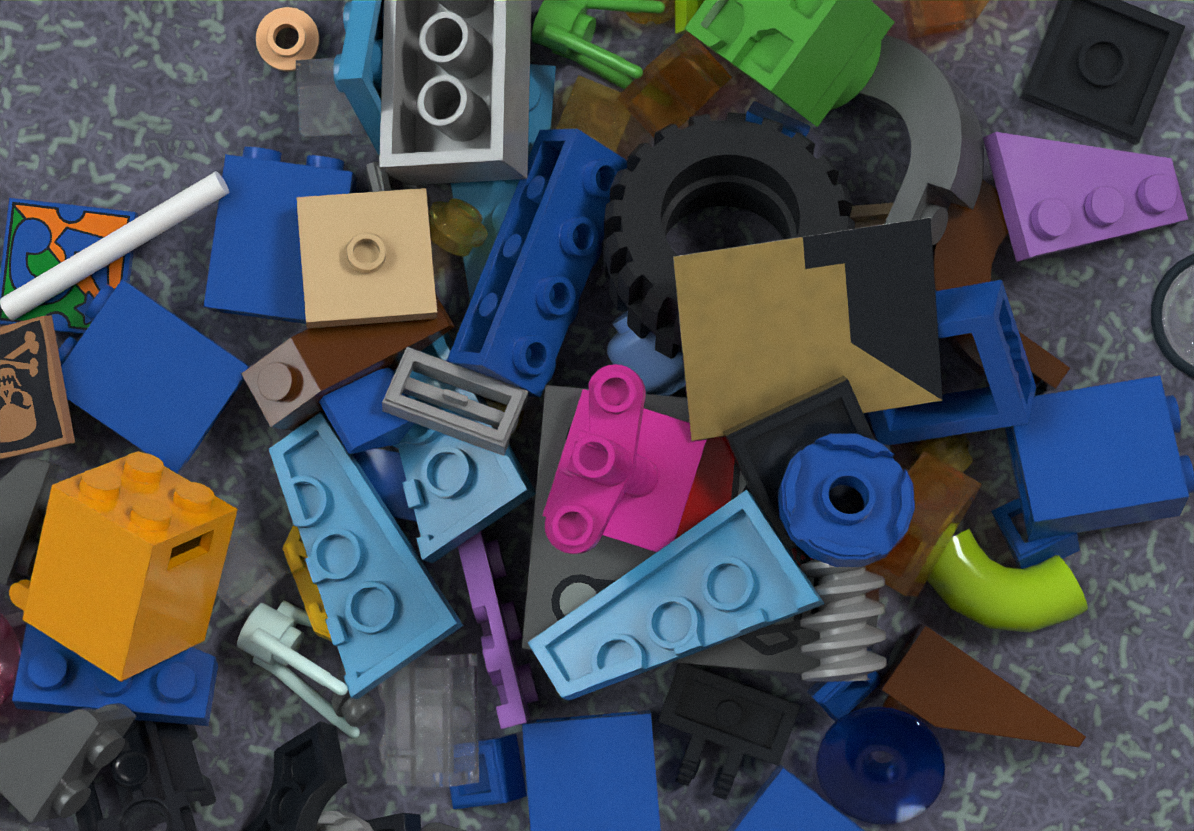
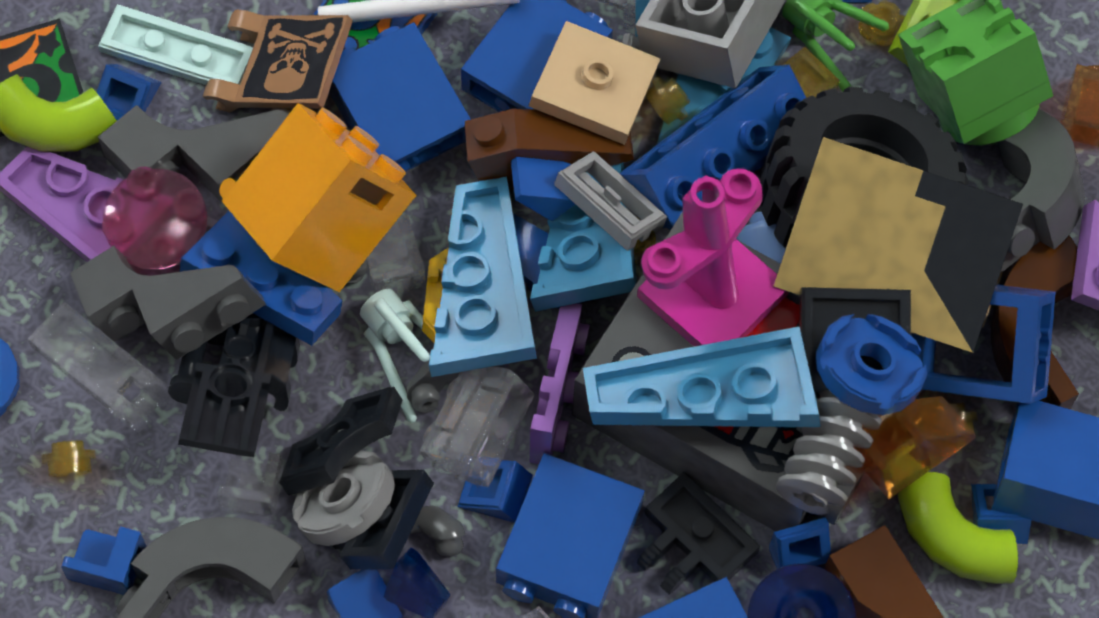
camera: 20 degrees right, 20 degrees down
(674, 85) = (873, 70): clear orange panel -> none

